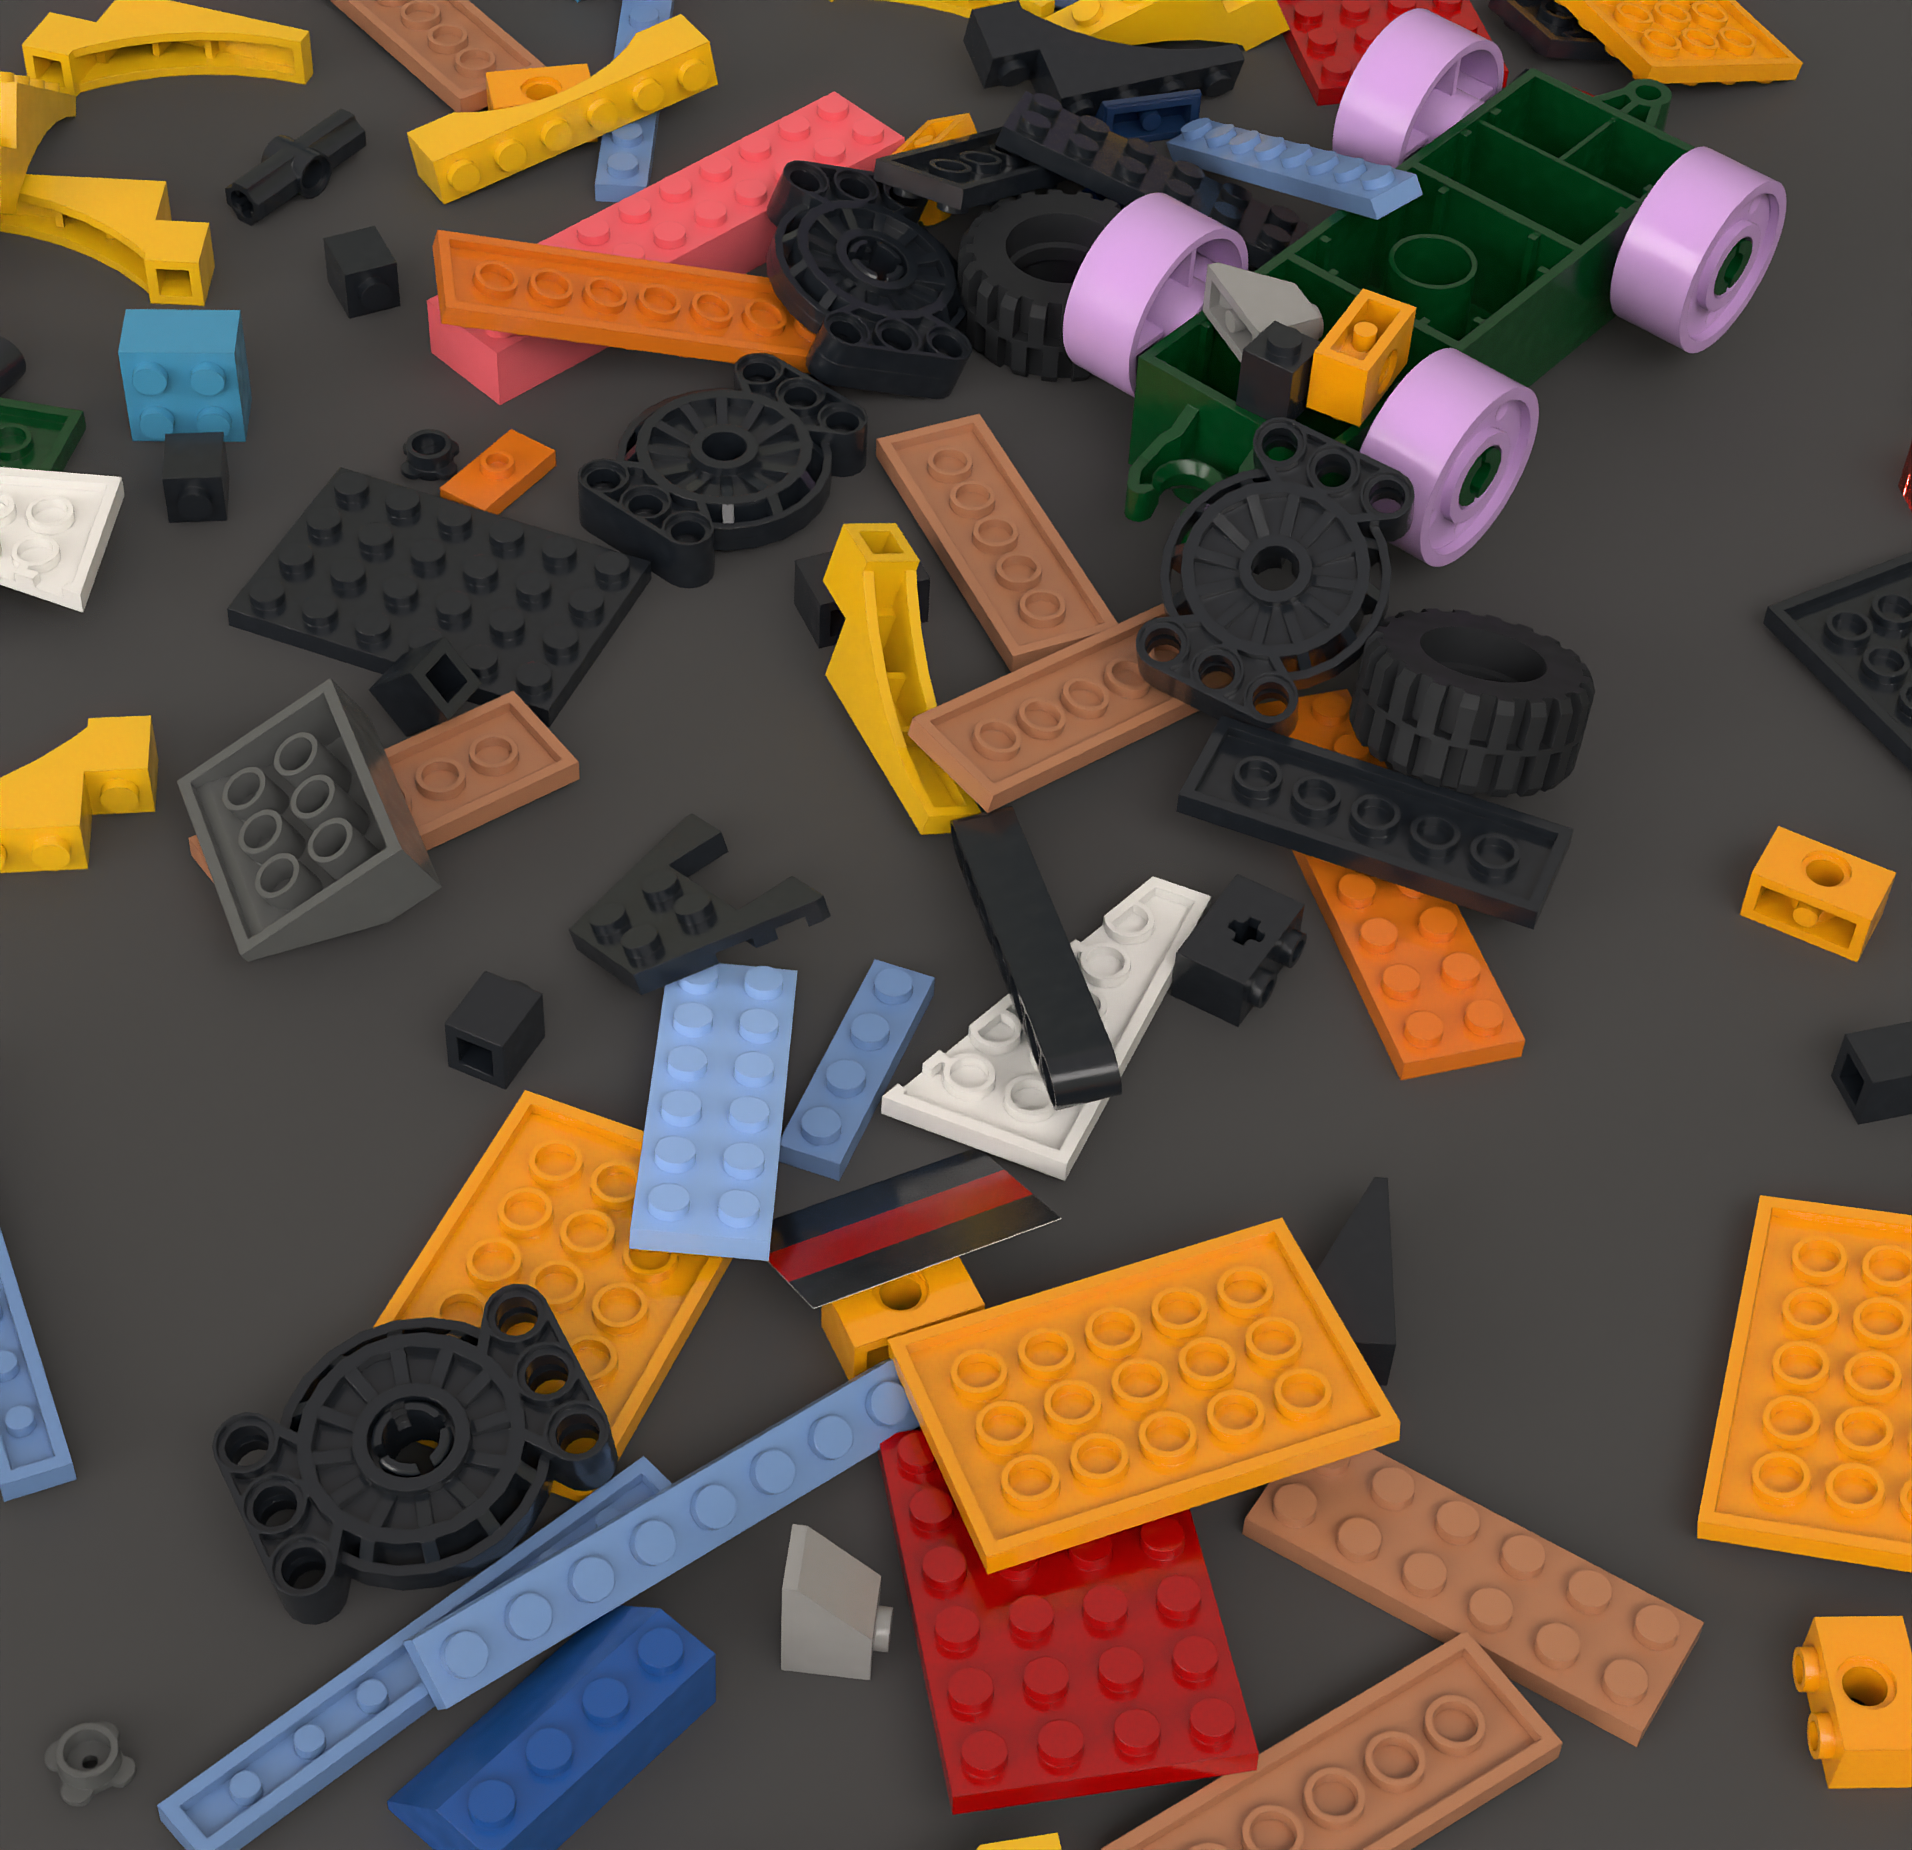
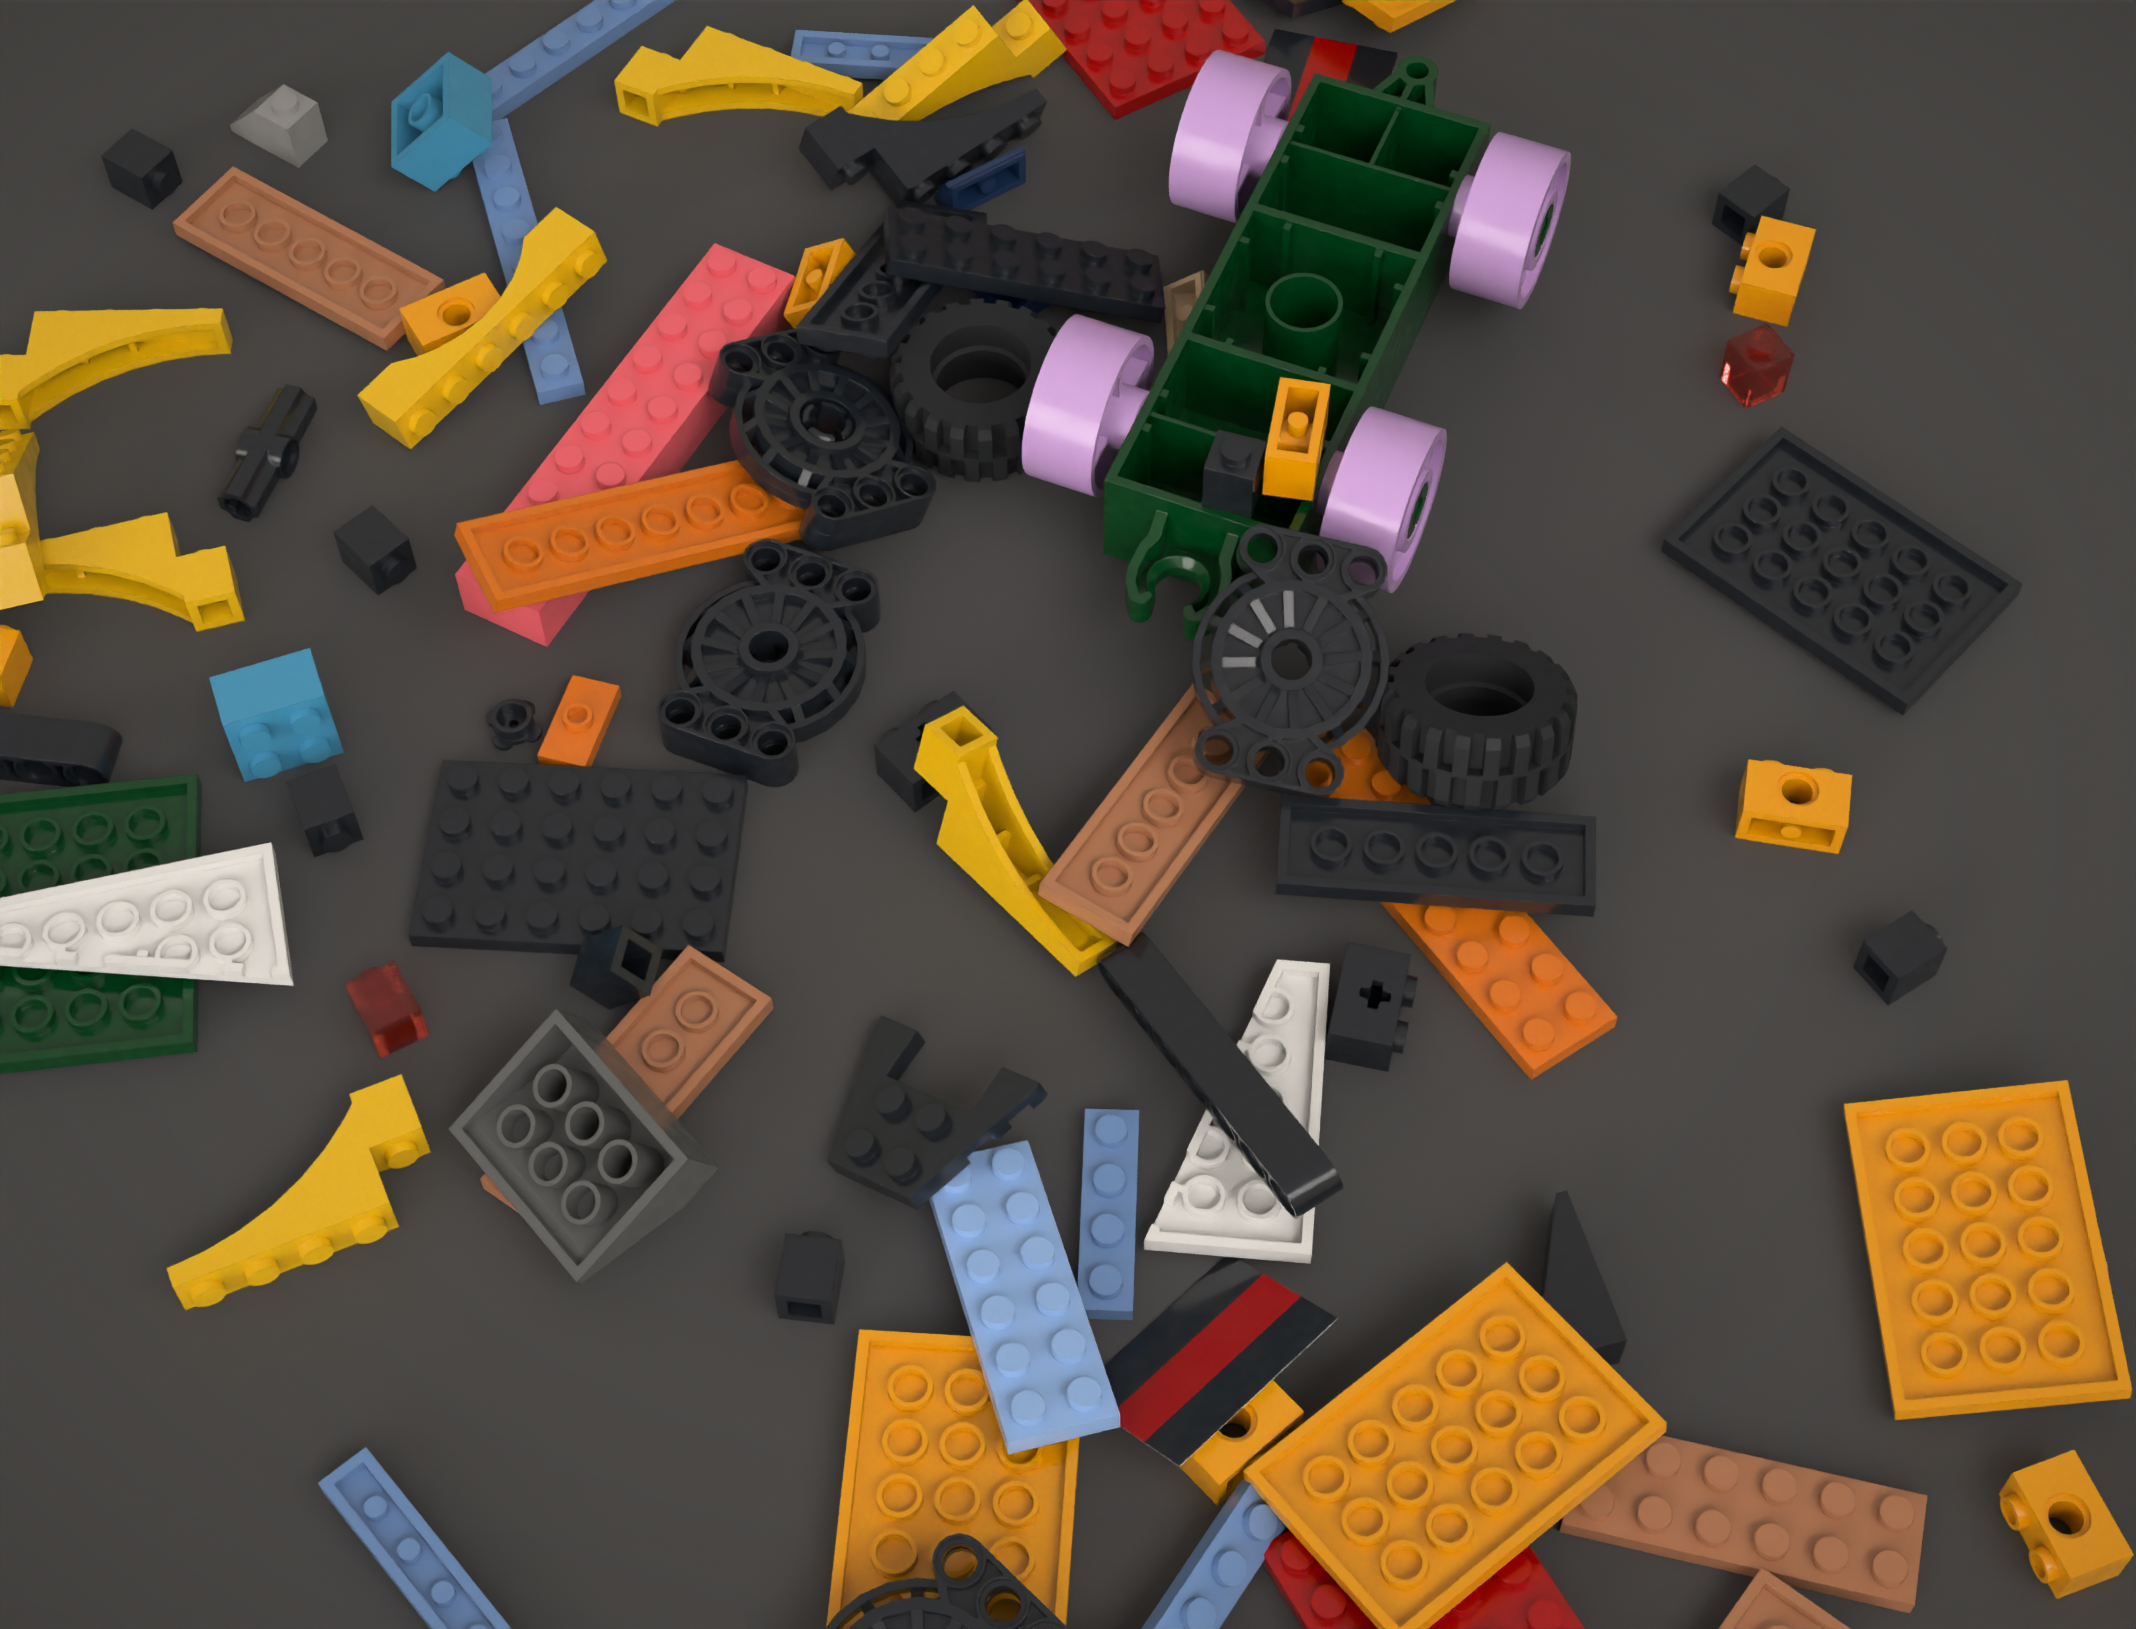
camera: 15 degrees left, 10 degrees up
(170, 664) = (387, 1009): none -> clear red brick
(994, 539) = (1023, 664): nougat plate -> none
(1247, 302) = (1192, 413): light grey slope -> none
(1295, 168) = (1146, 227): medium blue plate -> none

